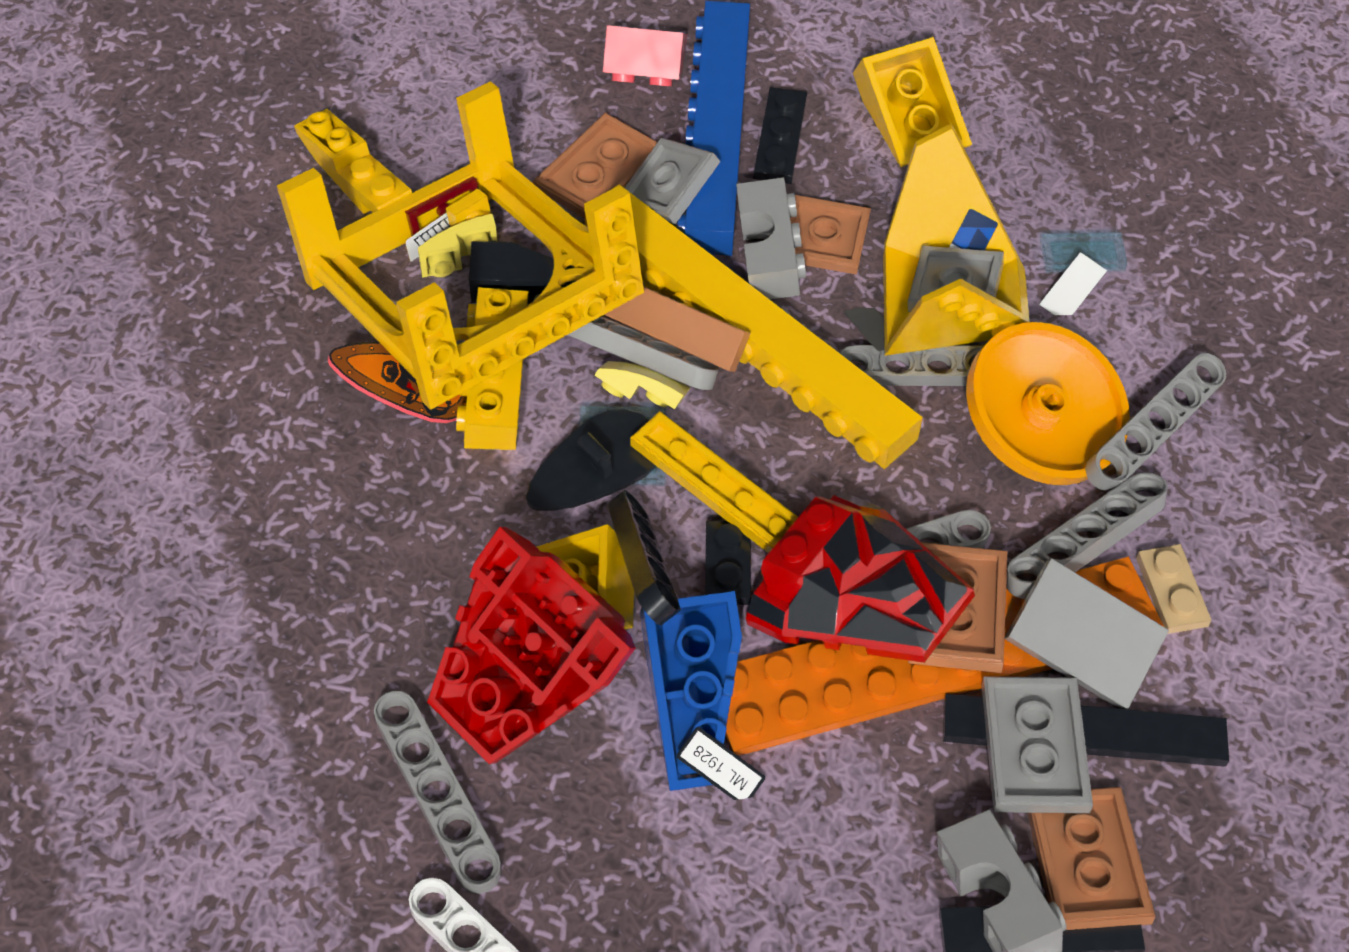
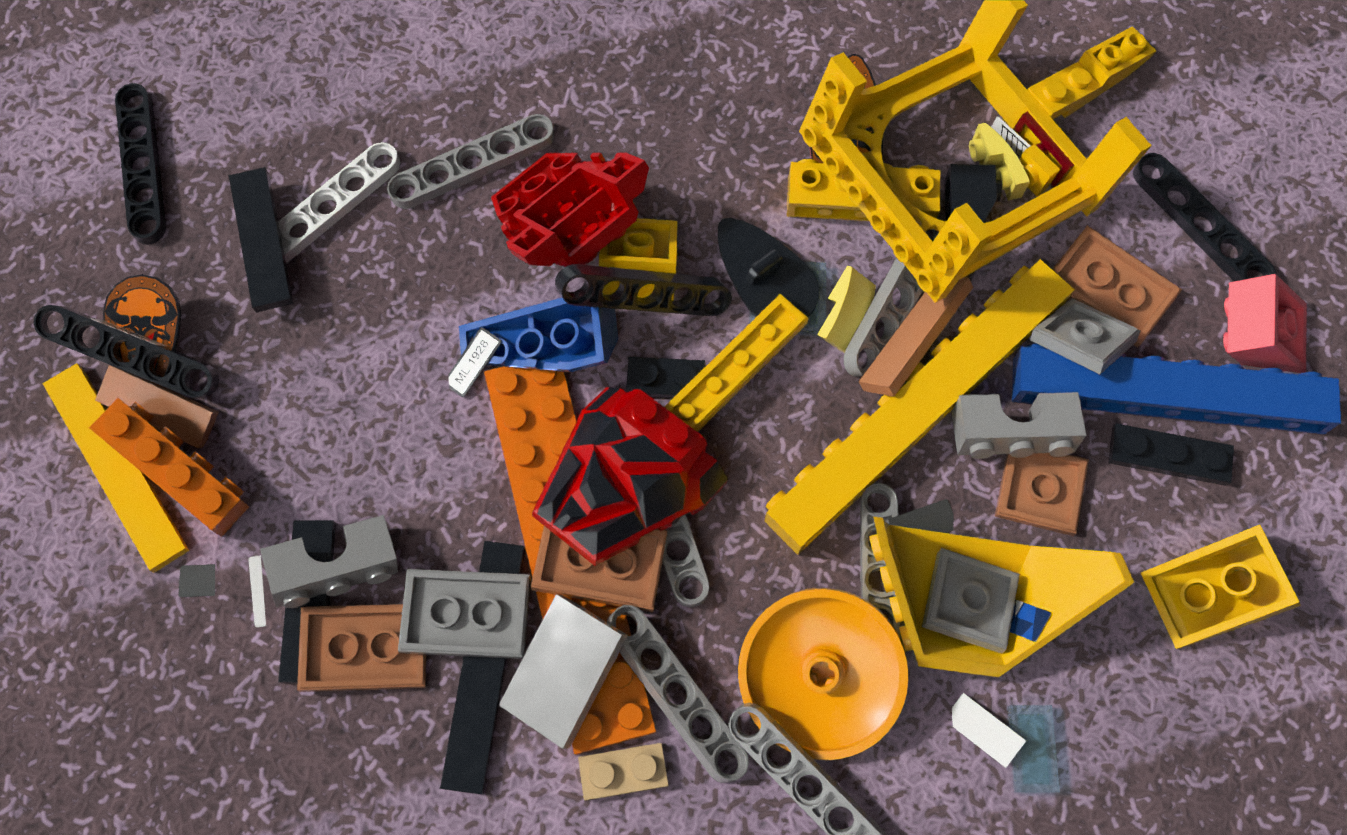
camera: 95 degrees right, 15 degrees up
(540, 80) = (1198, 206): none -> black beam

